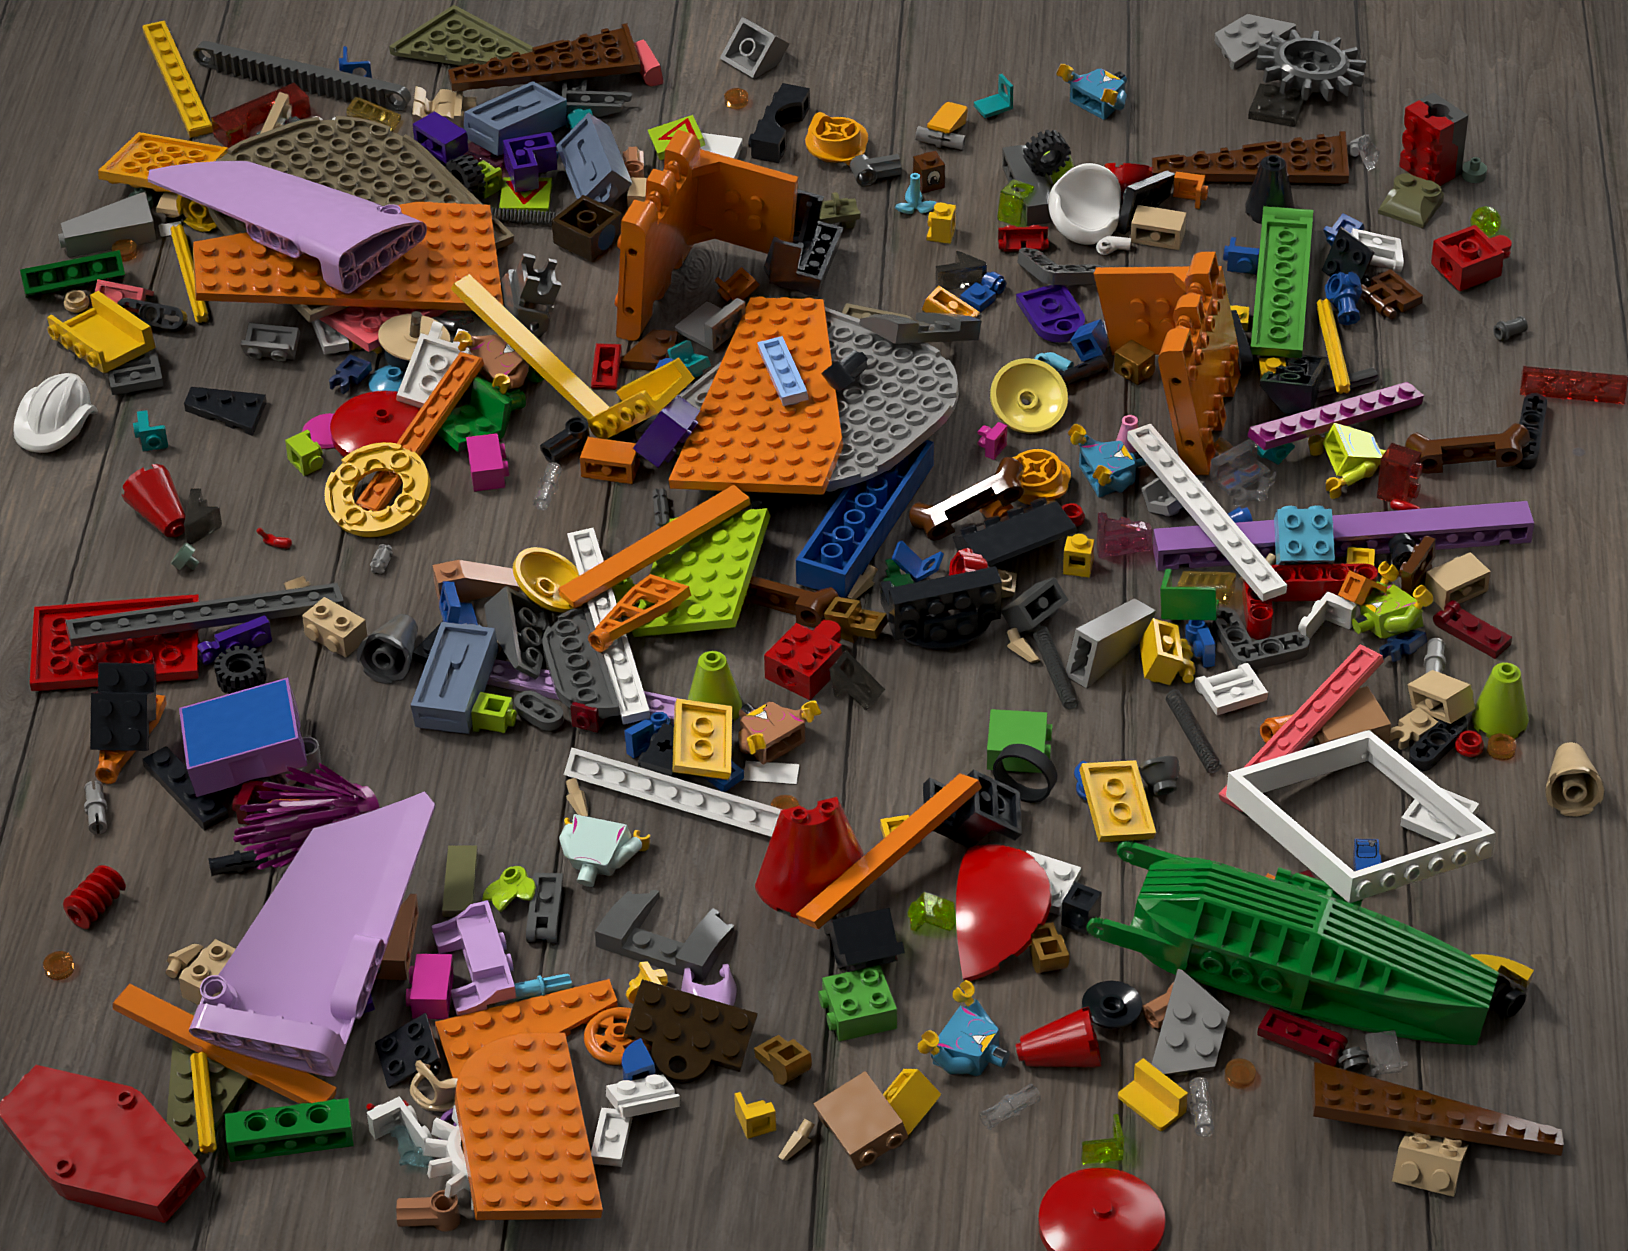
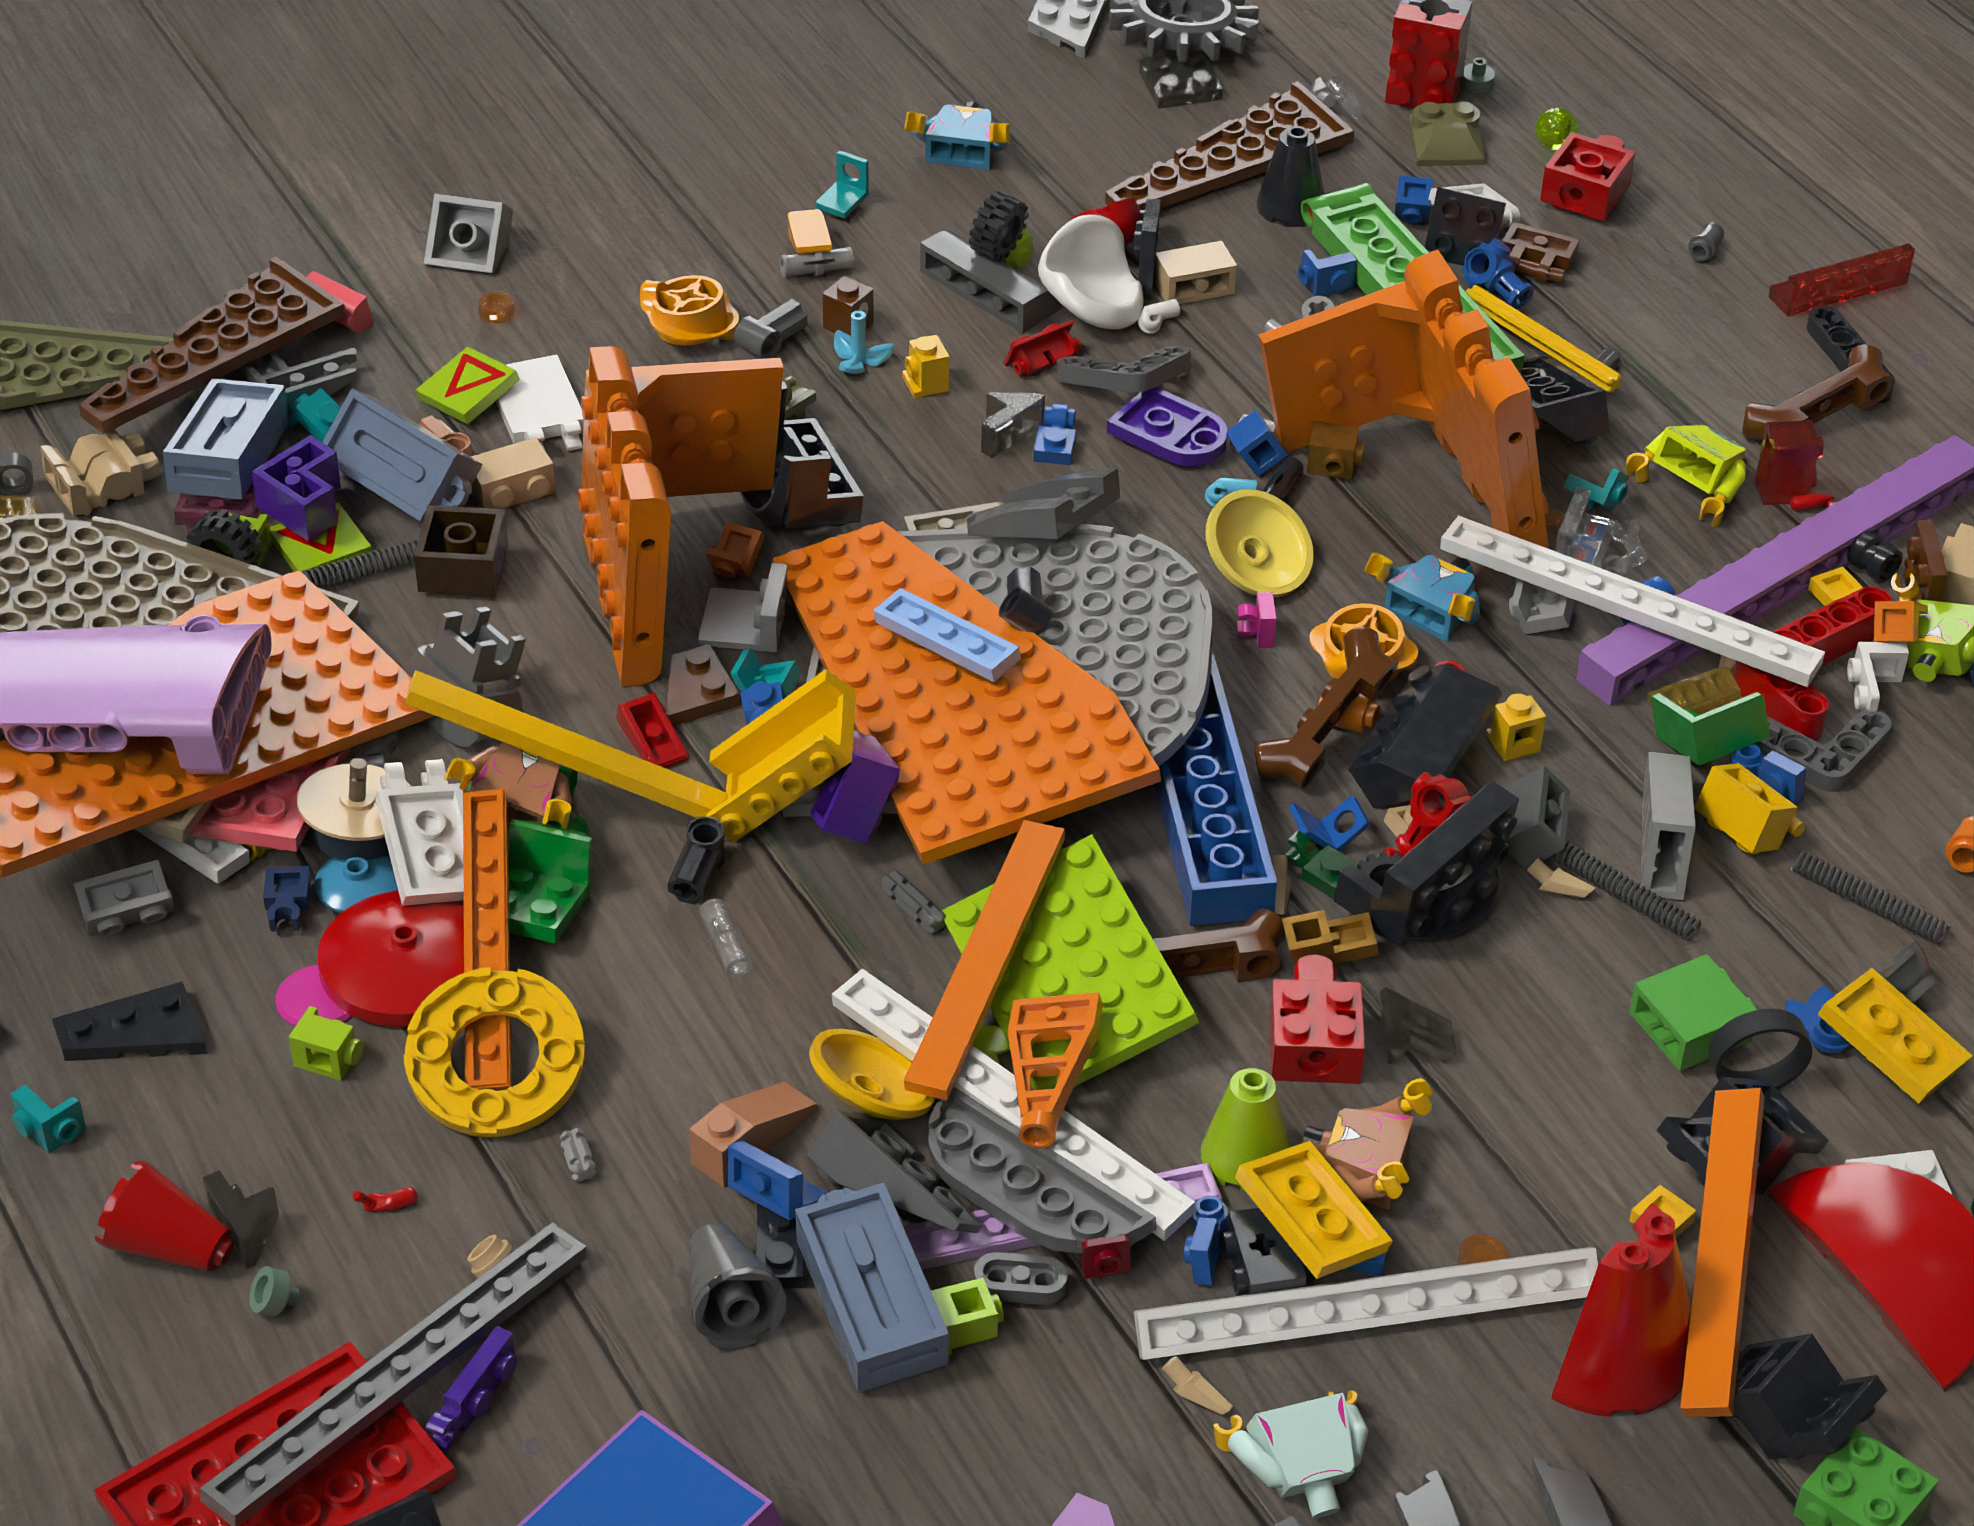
camera: 35 degrees left, 0 degrees up
(238, 660) = (522, 1456): black tyre -> none
(334, 627) = (607, 1294): tan brick -> none
(441, 137) = (149, 500): dark purple brick -> none
(486, 462) = (610, 941): dark pink brick -> none
(609, 460) = (785, 862): orange brick -> none
(771, 772) = (1414, 1211): white sticker -> none
(787, 106) = (581, 293): black arch -> none
(933, 911) = (1819, 1310): clear neon green bracket -> none
(945, 302) = (1020, 469): light orange slope -> none
(1012, 202) = (996, 307): clear neon green bracket -> none
(1122, 536) = (1549, 674): clear pink wing -> none
(1129, 423) = (1421, 540): bright pink cone -> none
(1190, 187) = (1186, 210): orange bracket -> none
(1232, 689) = (1868, 828): white plate -> none
(1304, 536) = (1775, 582): medium azure brick -> none
(1343, 412) = (1642, 421): magenta plate -> none

